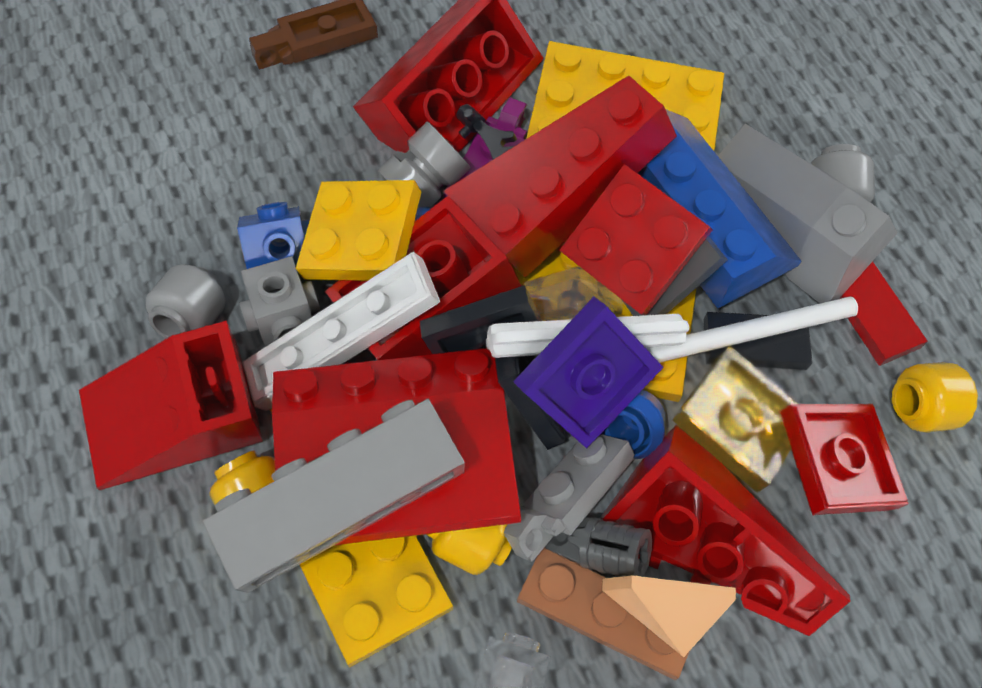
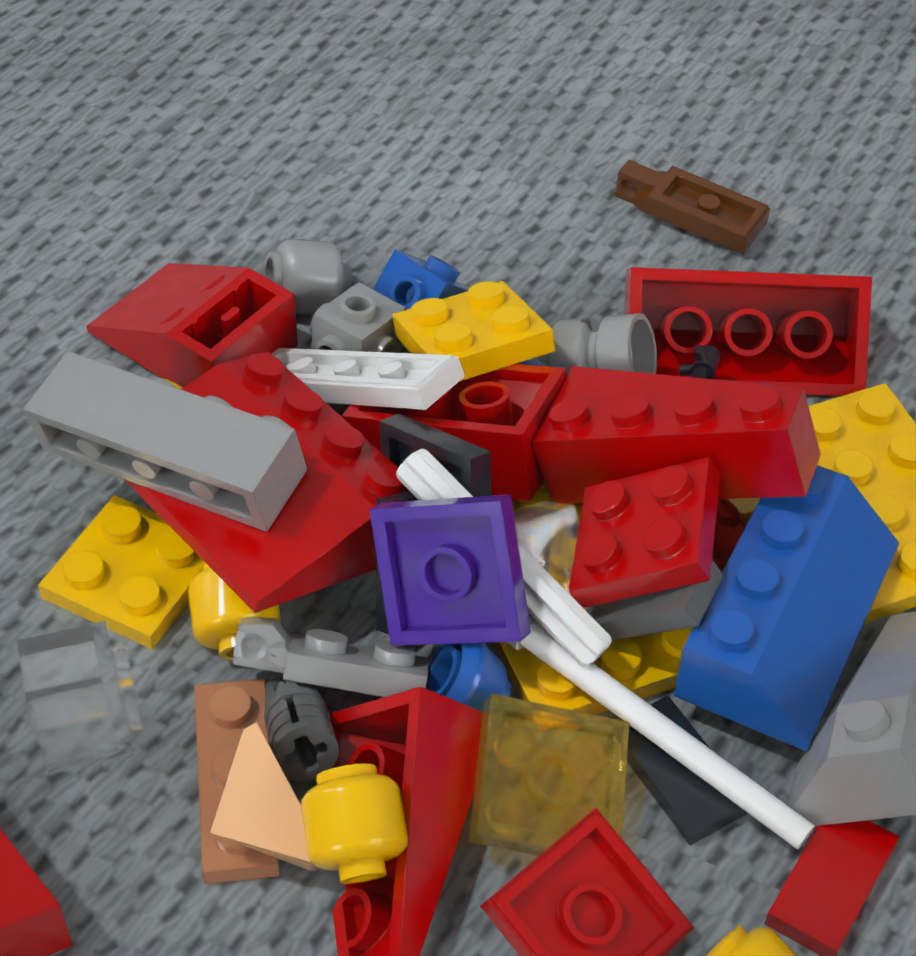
camera: 60 degrees right, 15 degrees down
(737, 556) = (354, 822): none -> yellow head

